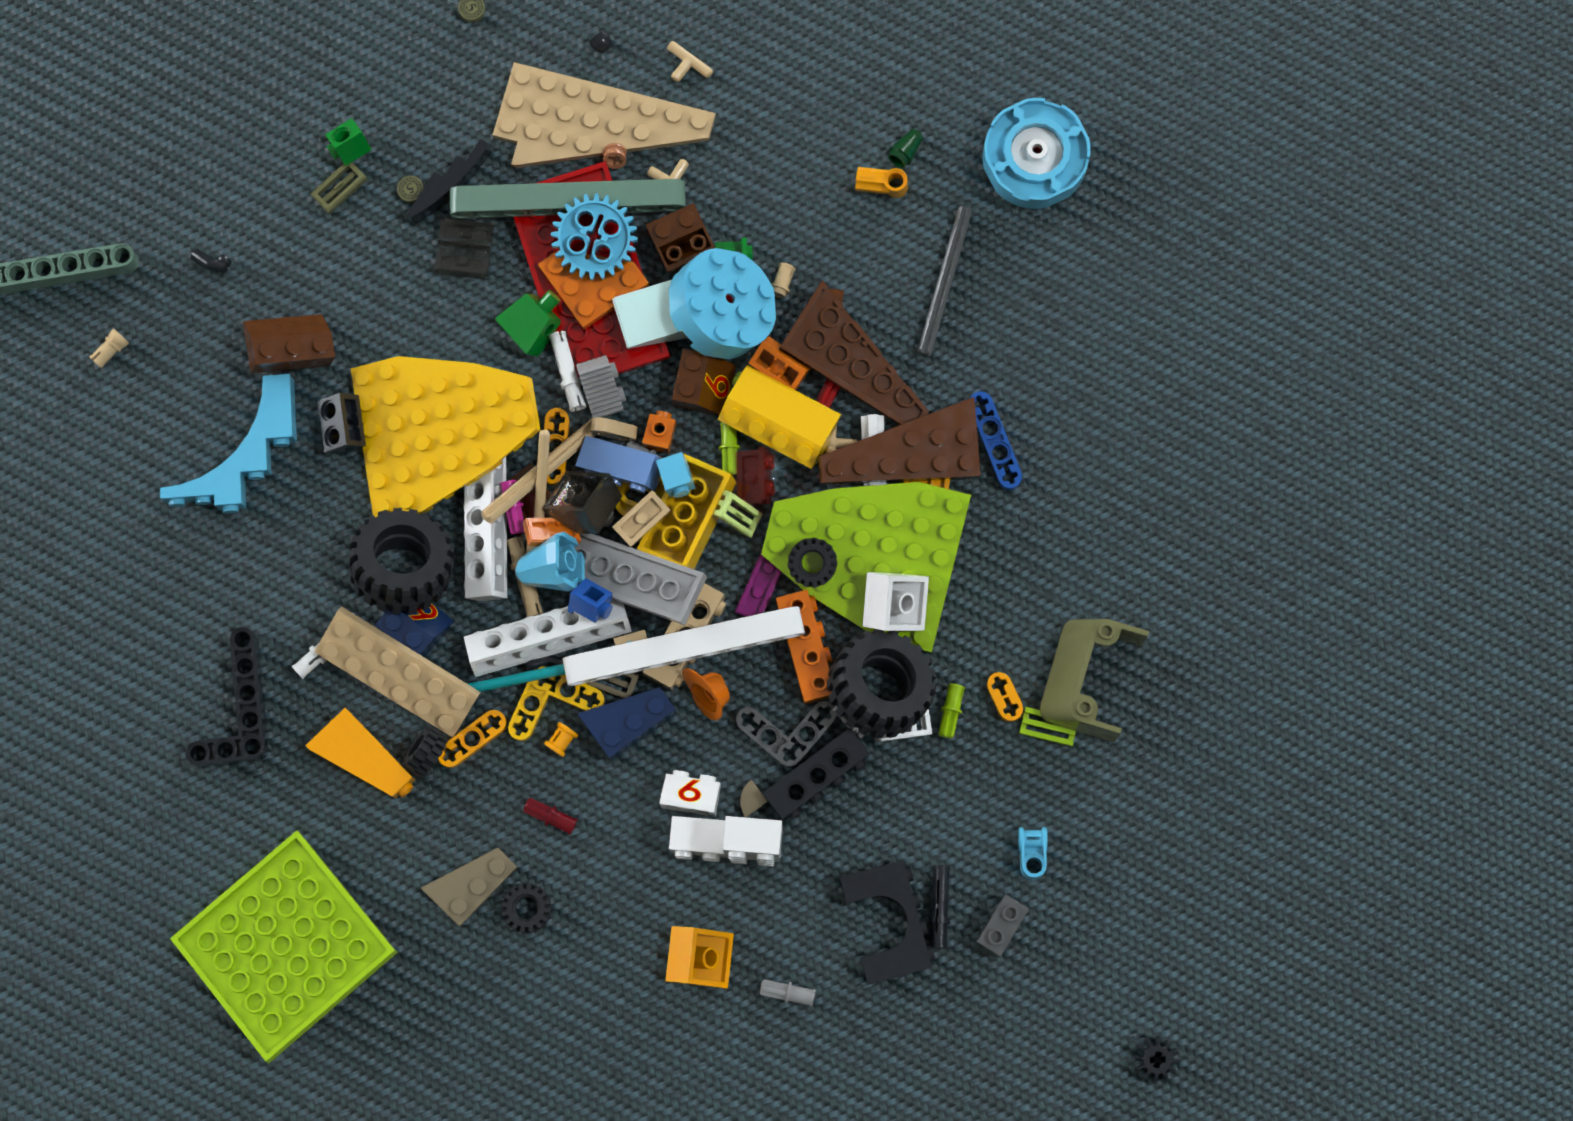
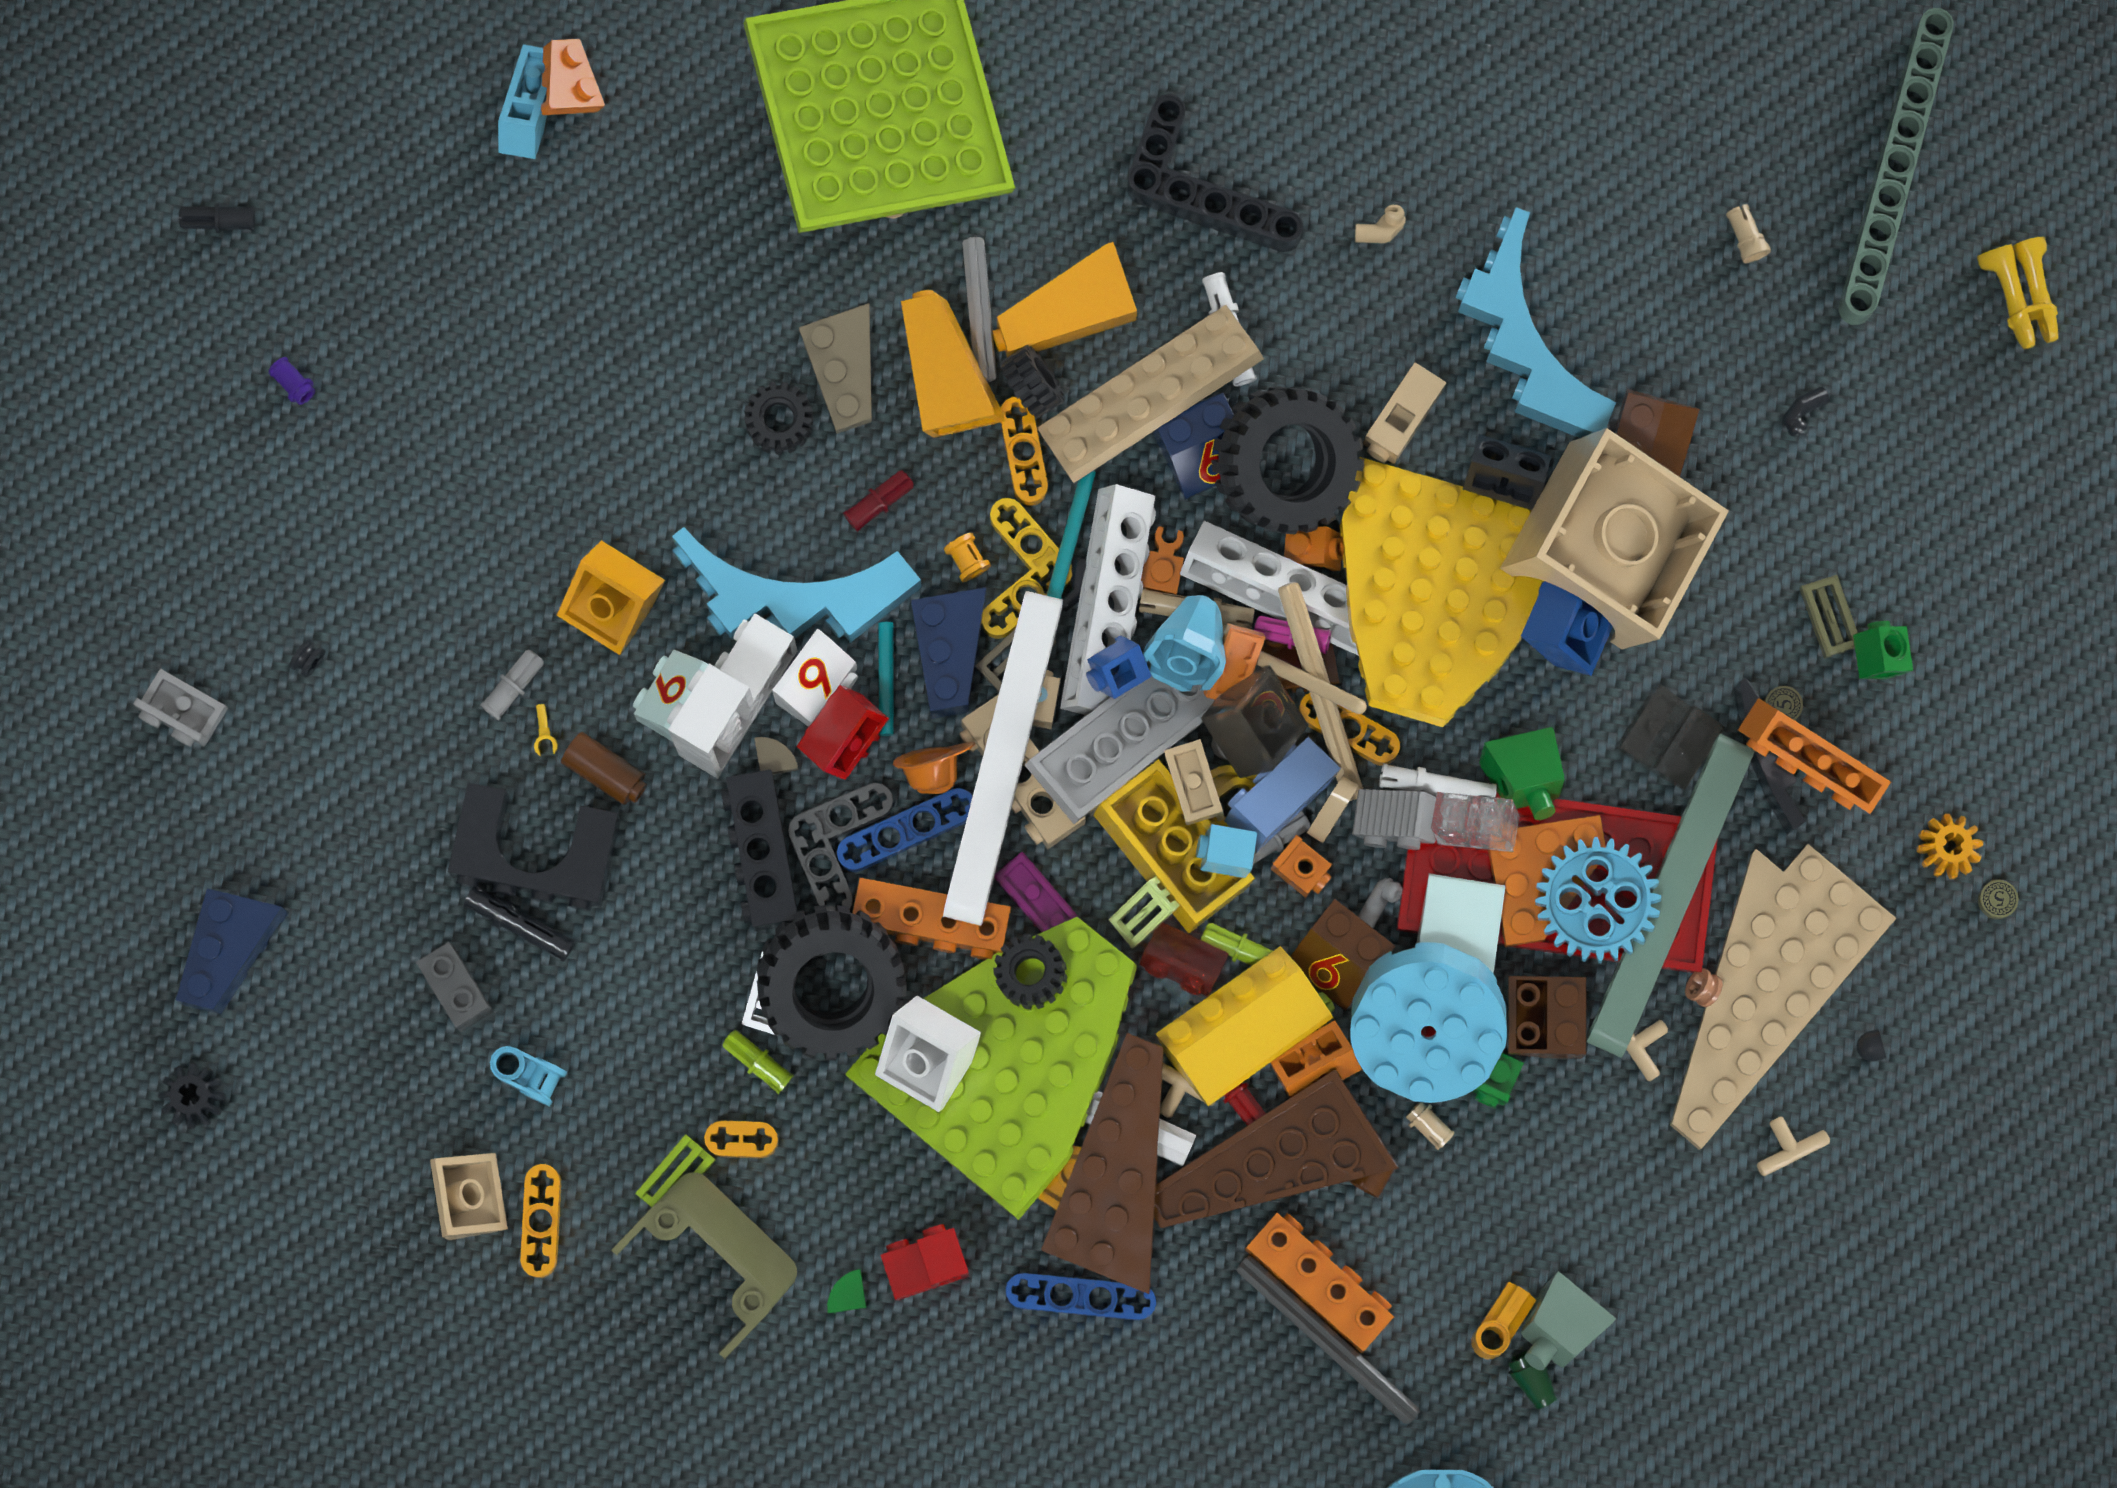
camera: 110 degrees right, 0 degrees up
(54, 181) = (2003, 263): none -> yellow piece
(212, 579) = (1384, 230): none -> tan arm
(332, 507) = (1403, 414): none -> tan brick
(354, 330) = (1617, 535): none -> tan piece
(390, 814) = (979, 306): none -> light grey axle
(421, 337) = (1566, 630): none -> blue brick
(438, 150) = (1819, 759): none -> orange brick
(443, 813) = (945, 372): none -> light orange slope
(449, 517) = (1316, 548): none -> orange bracket
(451, 41) = (1956, 859): none -> light orange gear
(506, 612) = (1162, 568): none -> orange plate
(581, 334) = (1475, 821): none -> clear brick
(657, 377) = (1384, 891): none -> light grey arm
(658, 870) = (850, 601): none -> medium azure arch
(665, 753) = (886, 675): none -> teal bar
(716, 758) = (842, 732): none -> red brick
(744, 881) = (666, 691): none -> light aqua slope
(757, 691) = (904, 825): none -> blue beam
(807, 956) = (544, 730): none -> yellow hand
(814, 902) = (604, 769): none -> reddish brown brick
(865, 144) = (1562, 1323): none -> sand green torso
(913, 300) = (1319, 1282): none -> orange brick
(1024, 542) = (925, 1264): none -> red brick
(1051, 1088) = (224, 948): none -> dark blue wedge
(1066, 583) = (847, 1293): none -> green tile
(1127, 848) = (468, 1195): none -> tan slope
(1141, 795) = (530, 1249): none -> light orange beam

